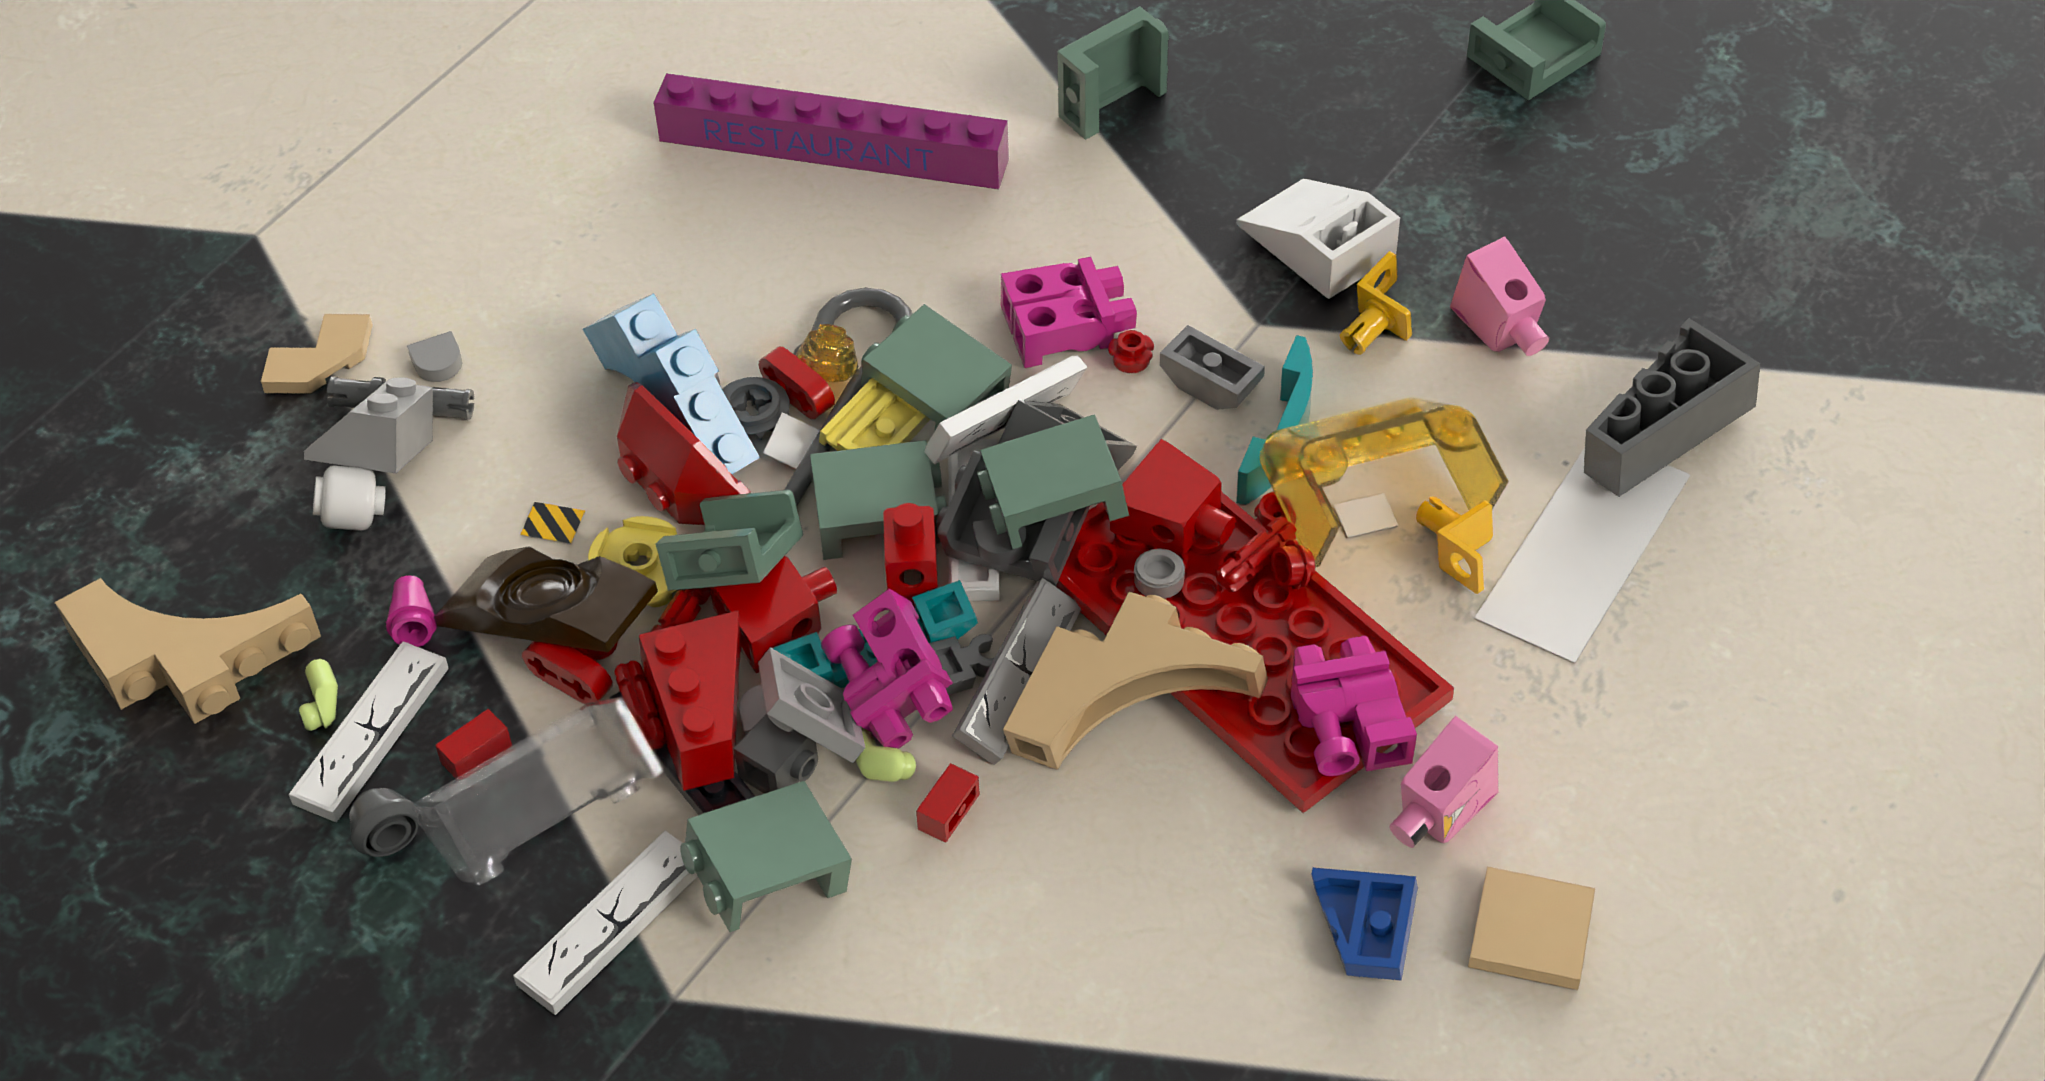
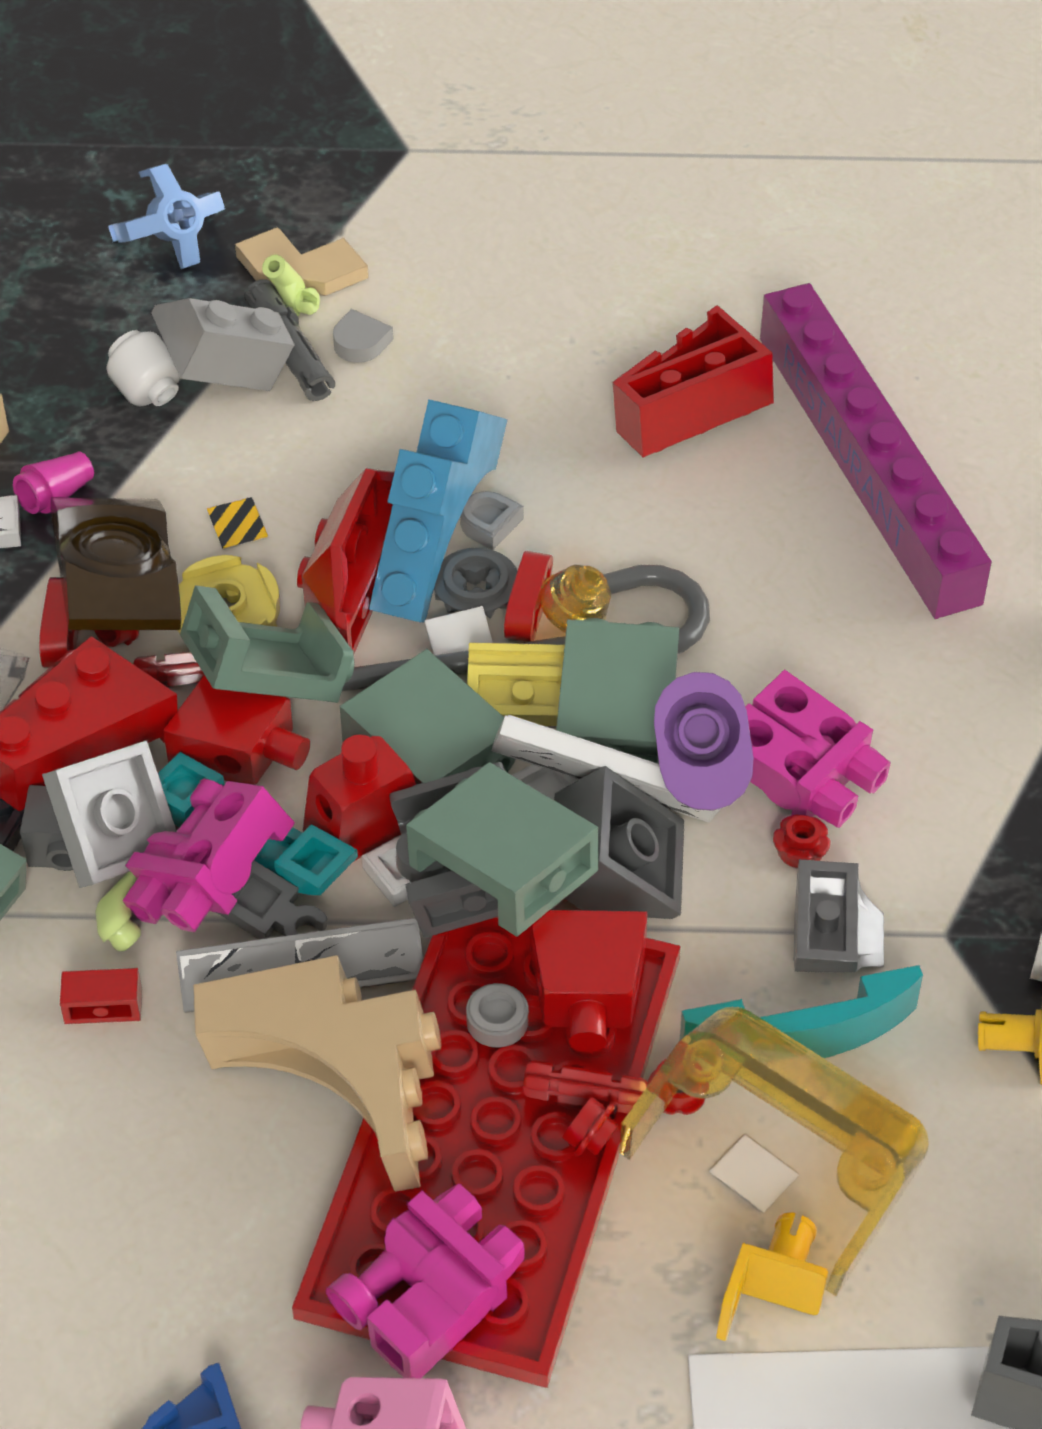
camera: 55 degrees right, 0 degrees up
(201, 398) = (171, 216): none -> light blue piece
(341, 365) = (290, 286): none -> yellowish green arm
(692, 186) = (694, 385): none -> red wedge
(1042, 338) = (703, 741): none -> medium lavender piece

